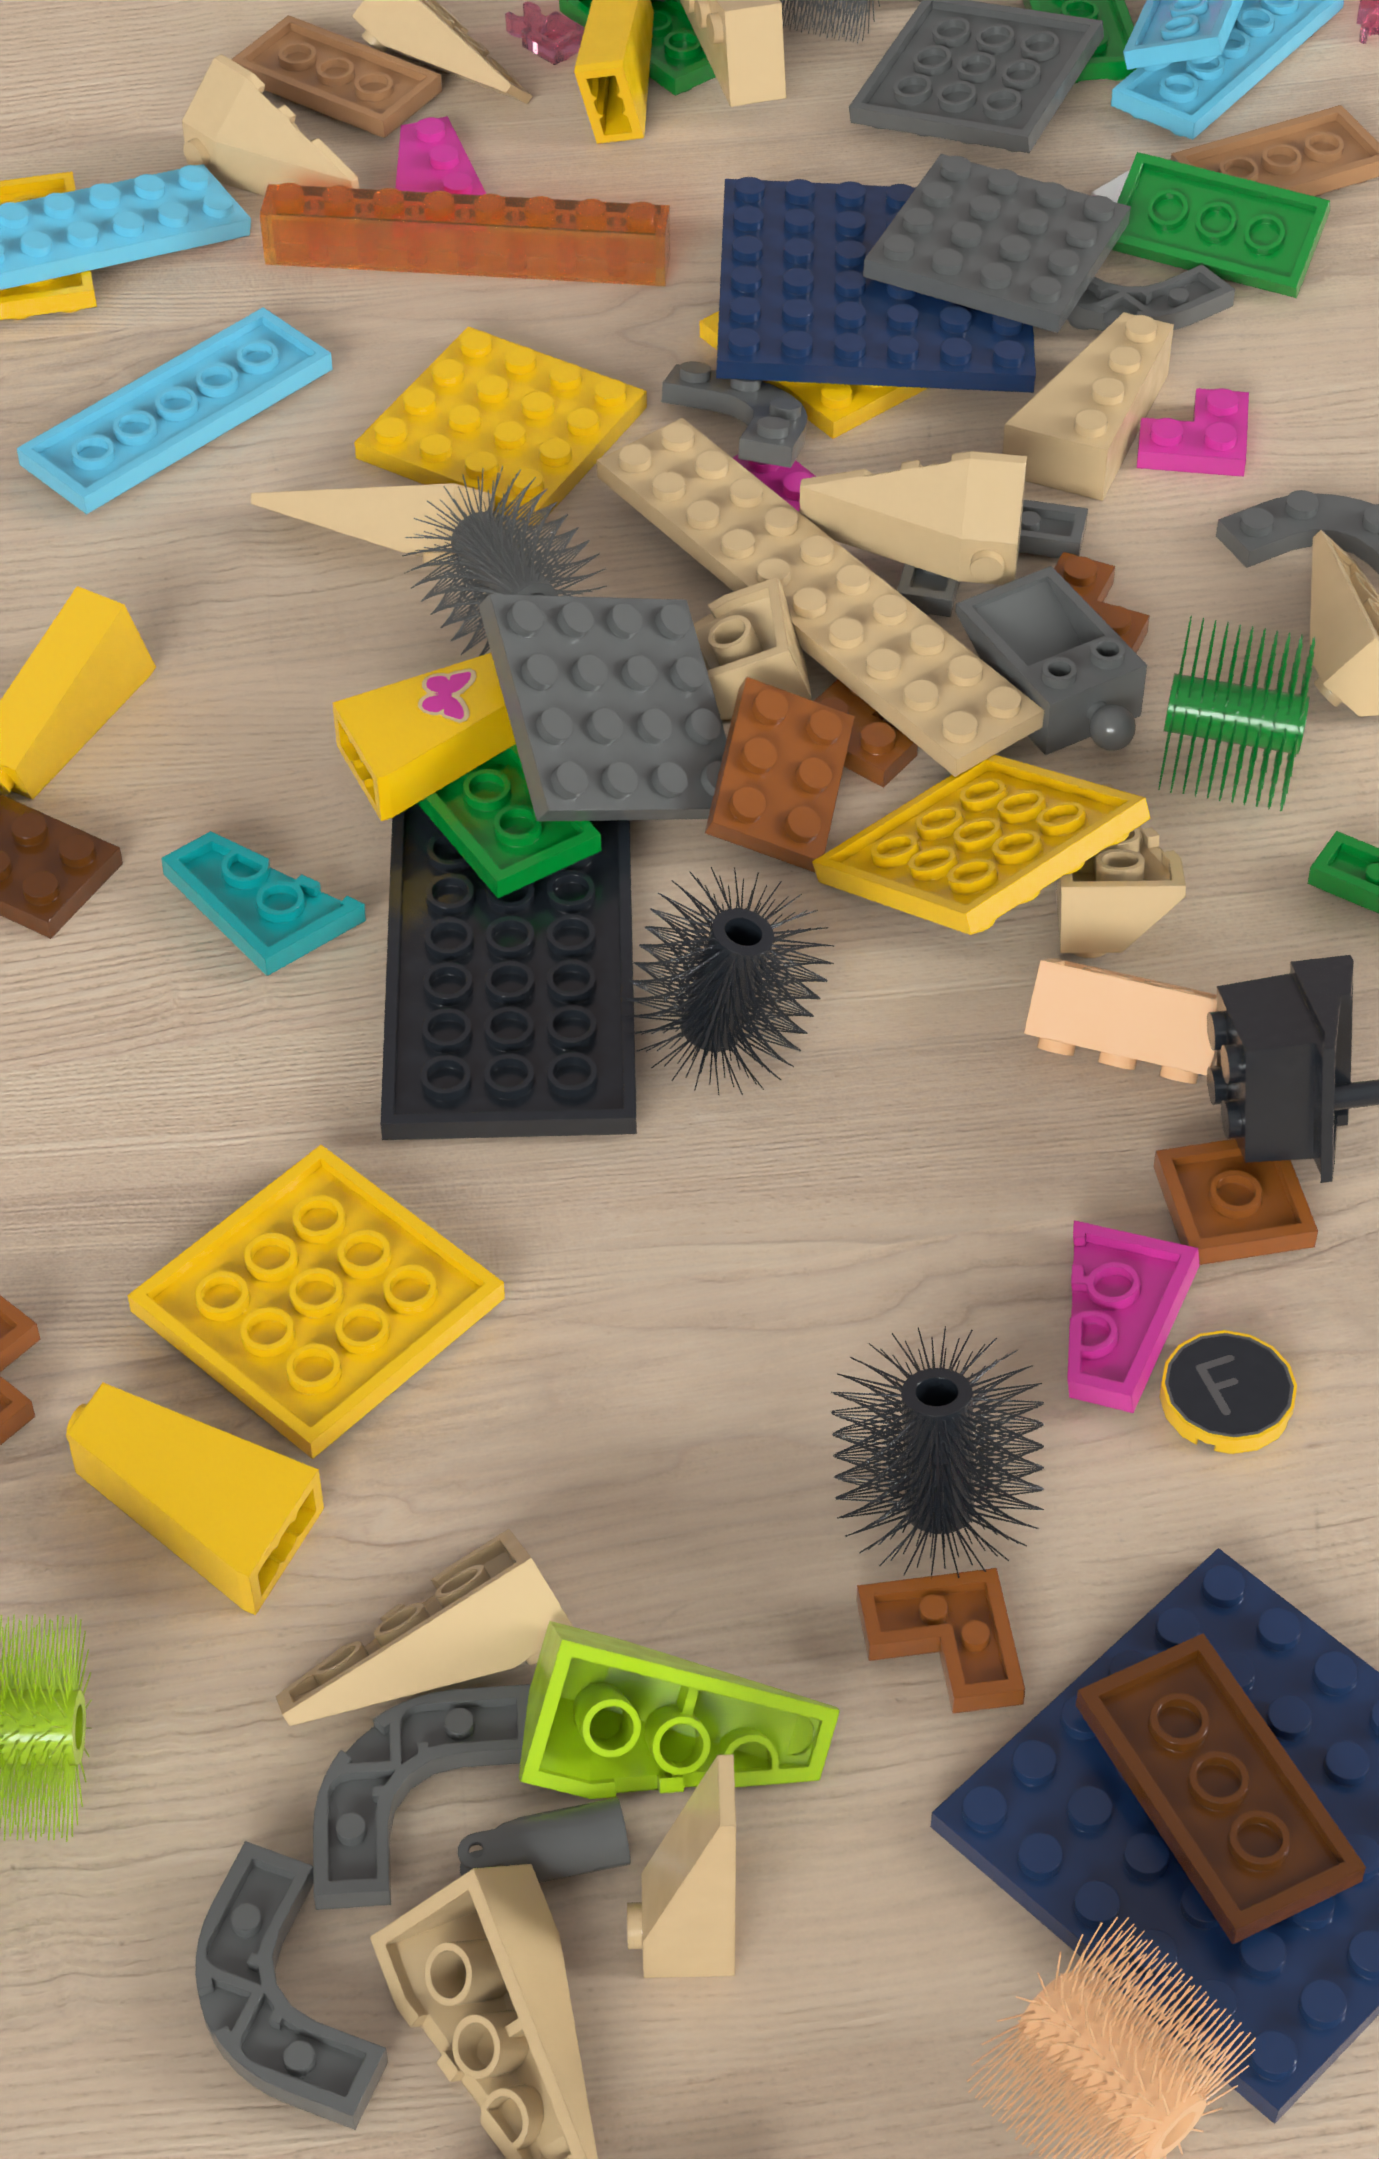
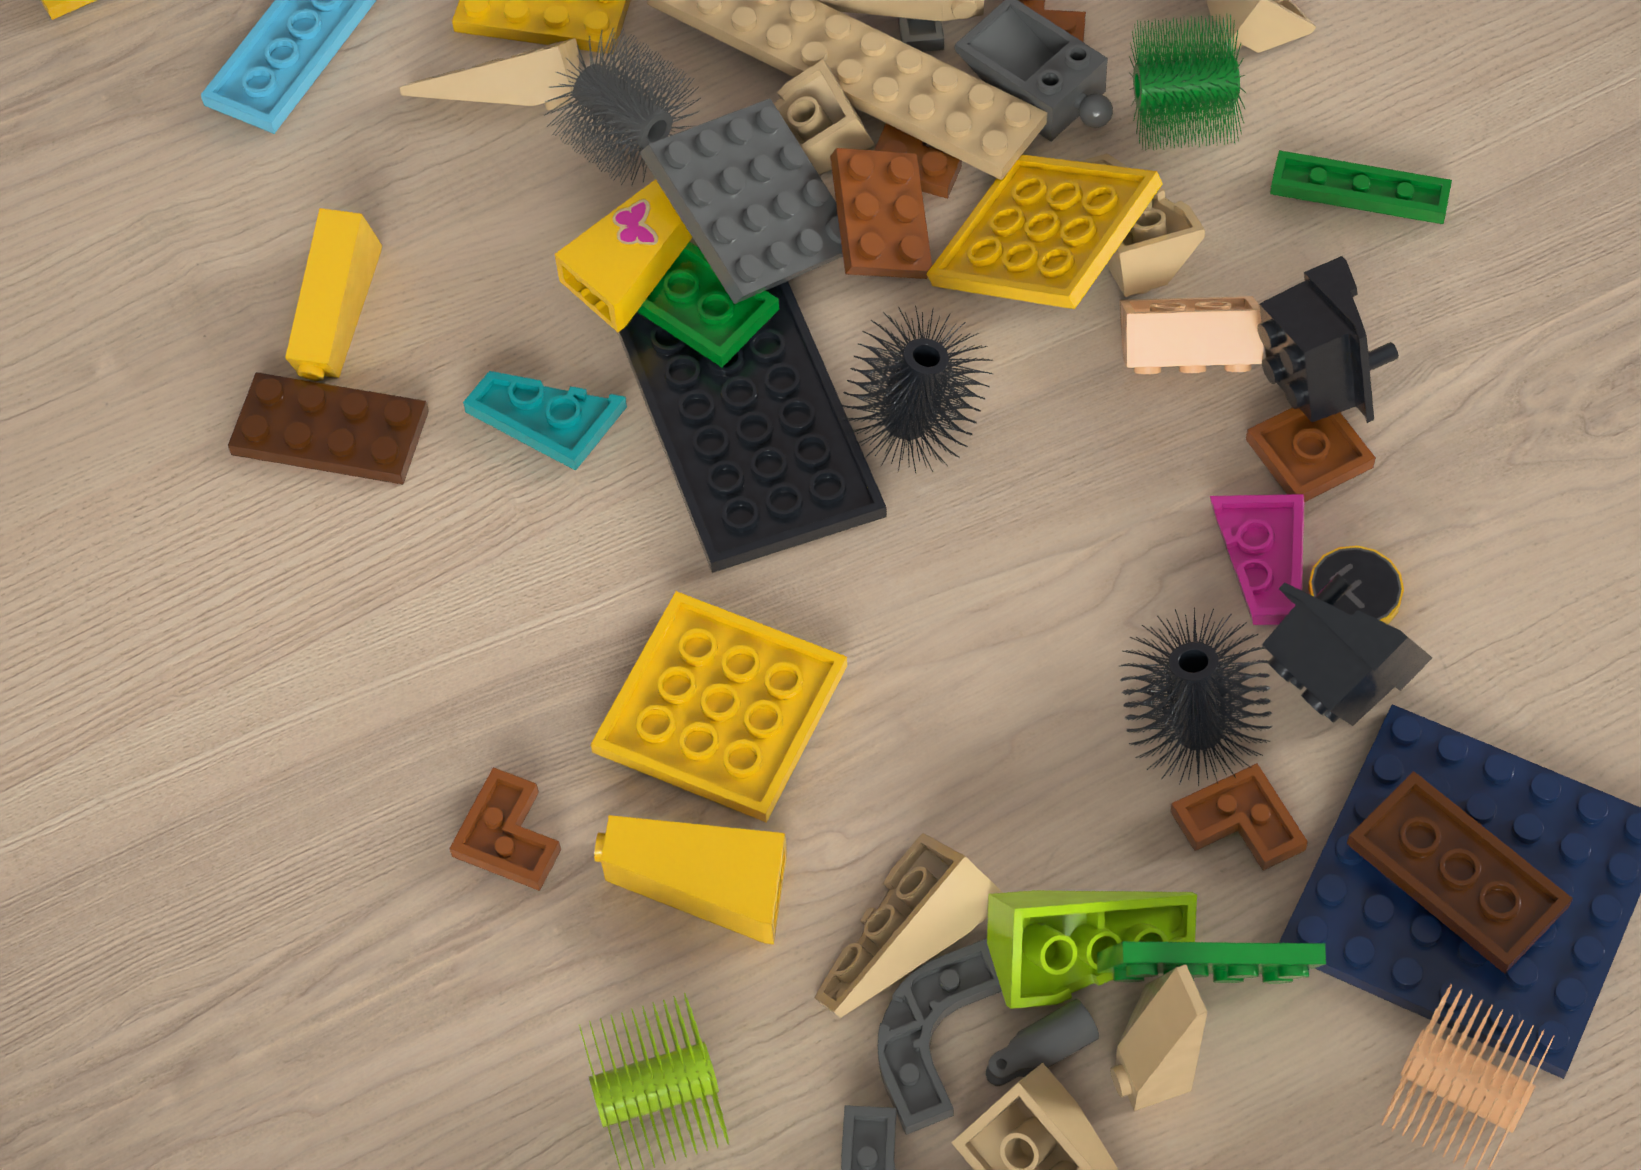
camera: 15 degrees left, 10 degrees up
(836, 1799) = (1224, 960): none -> green plate
(1160, 1456) = (1340, 656): none -> black piece

